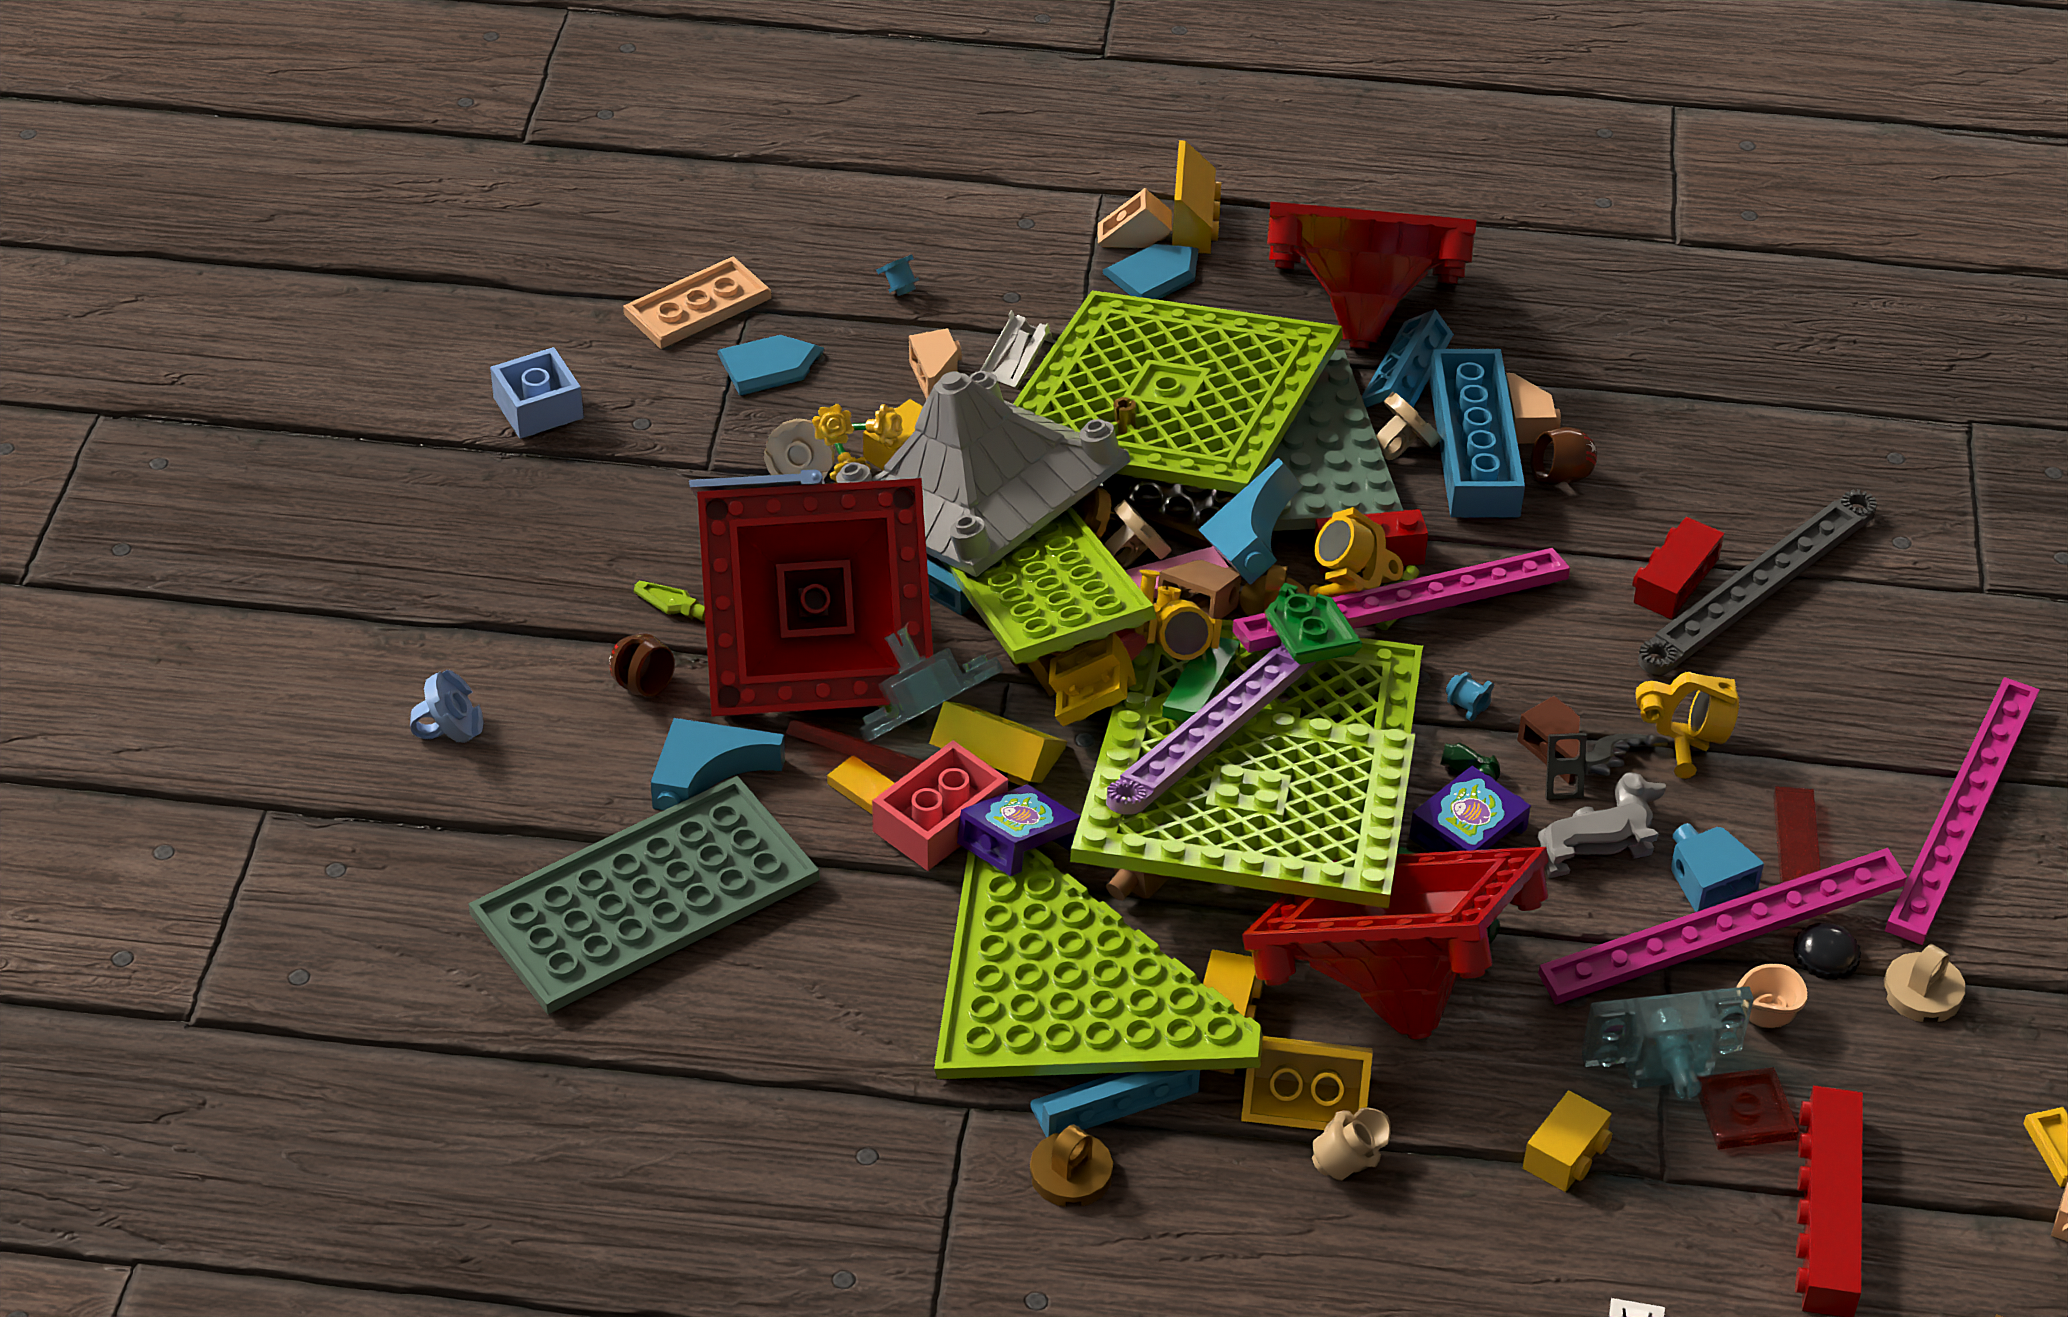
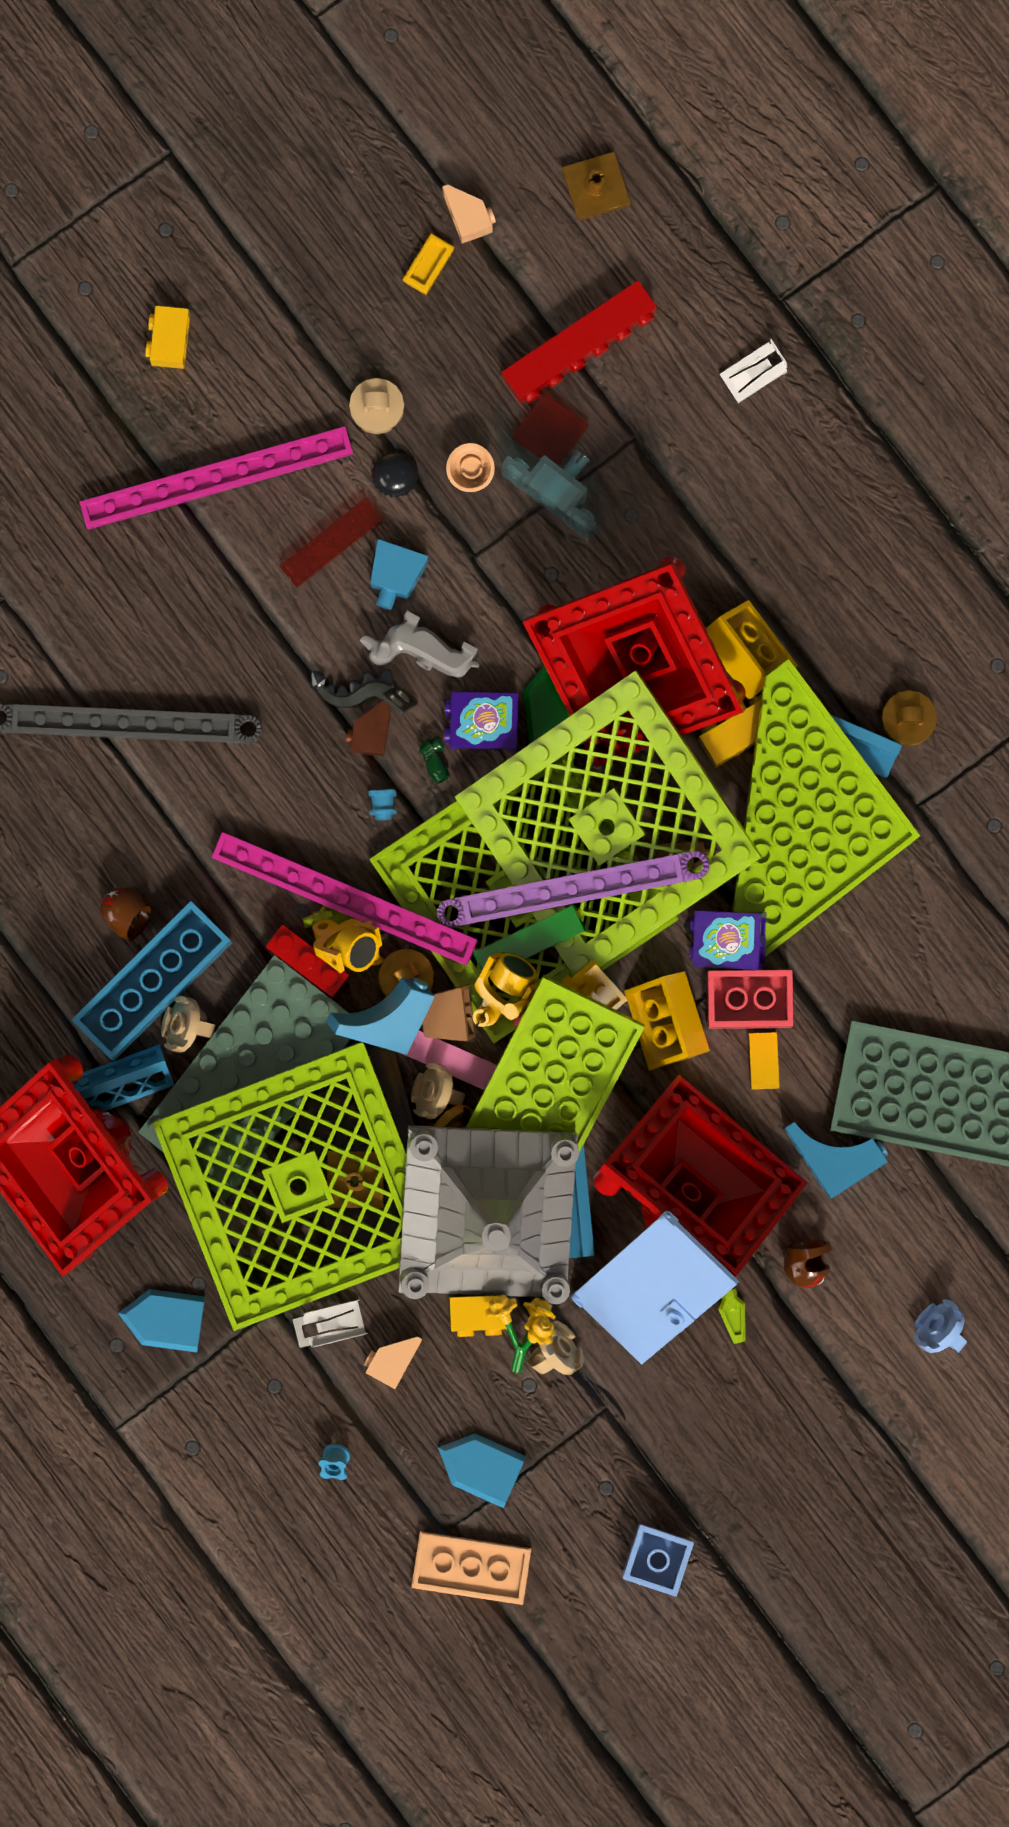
camera: 135 degrees left, 40 degrees up
(853, 746) = (745, 1085): clear red tile -> none
(922, 683) = (694, 1068): clear light blue brick -> none
(1136, 223) = (139, 1367): light nougat slope -> none
(1195, 201) = (85, 1345): yellow slope -> none
(1311, 626) = (433, 917): green tile -> none
(1351, 1142) = (772, 592): tan head -> none
(1531, 409) = (94, 972): light nougat slope -> none
(1568, 1141) = (663, 493): yellow brick -> none
(1677, 567) = (159, 776): red brick -> none
(1710, 716) = (284, 654): yellow piece -> none
(1721, 926) = (438, 530): dark pink plate -> none

